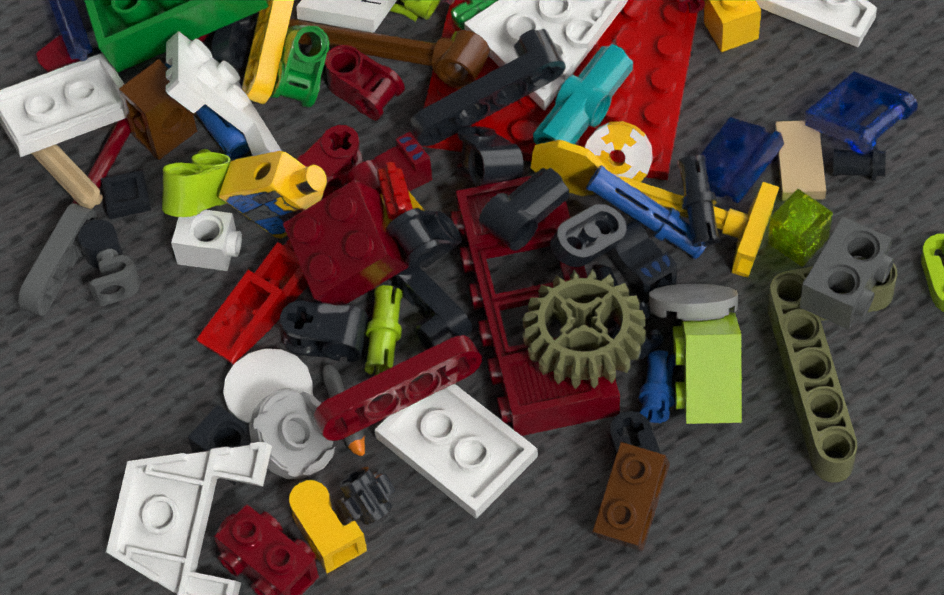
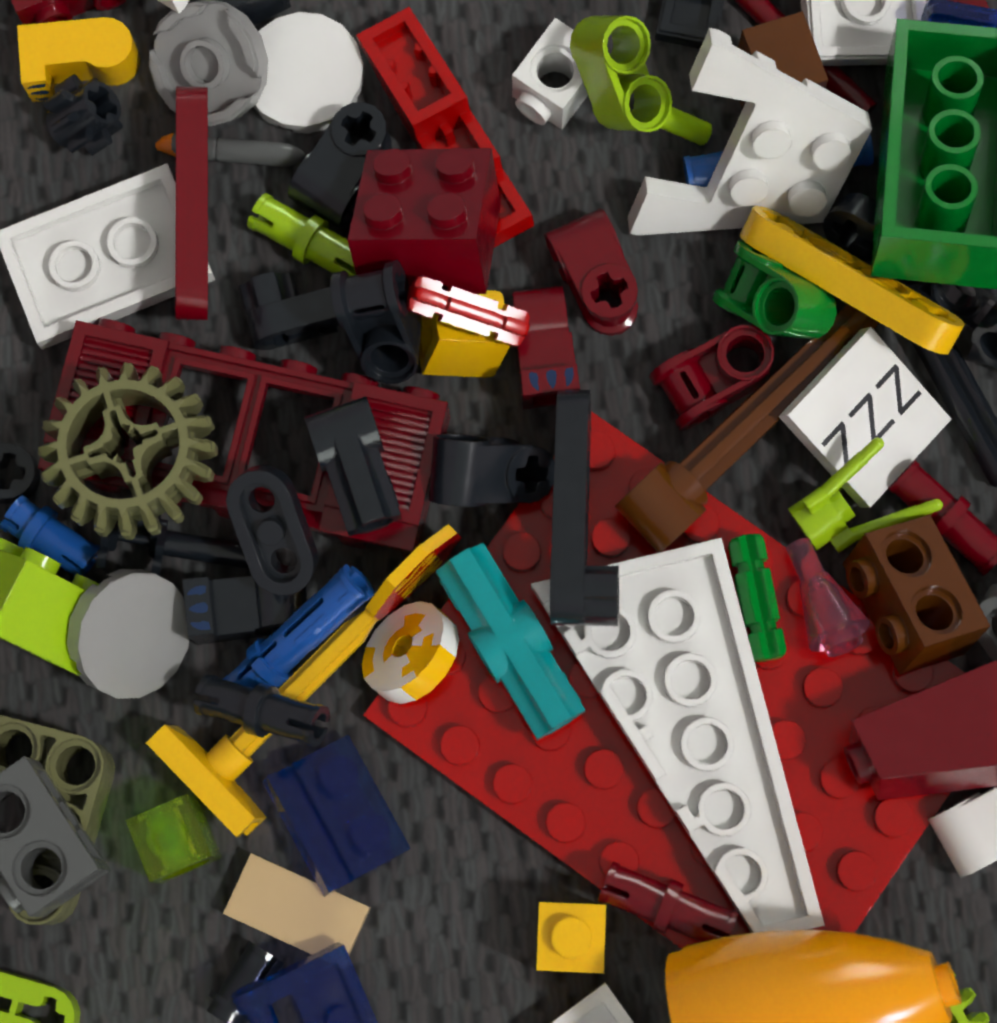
camera: 115 degrees right, 20 degrees up
(272, 189) = (552, 184): yellow torso -> none

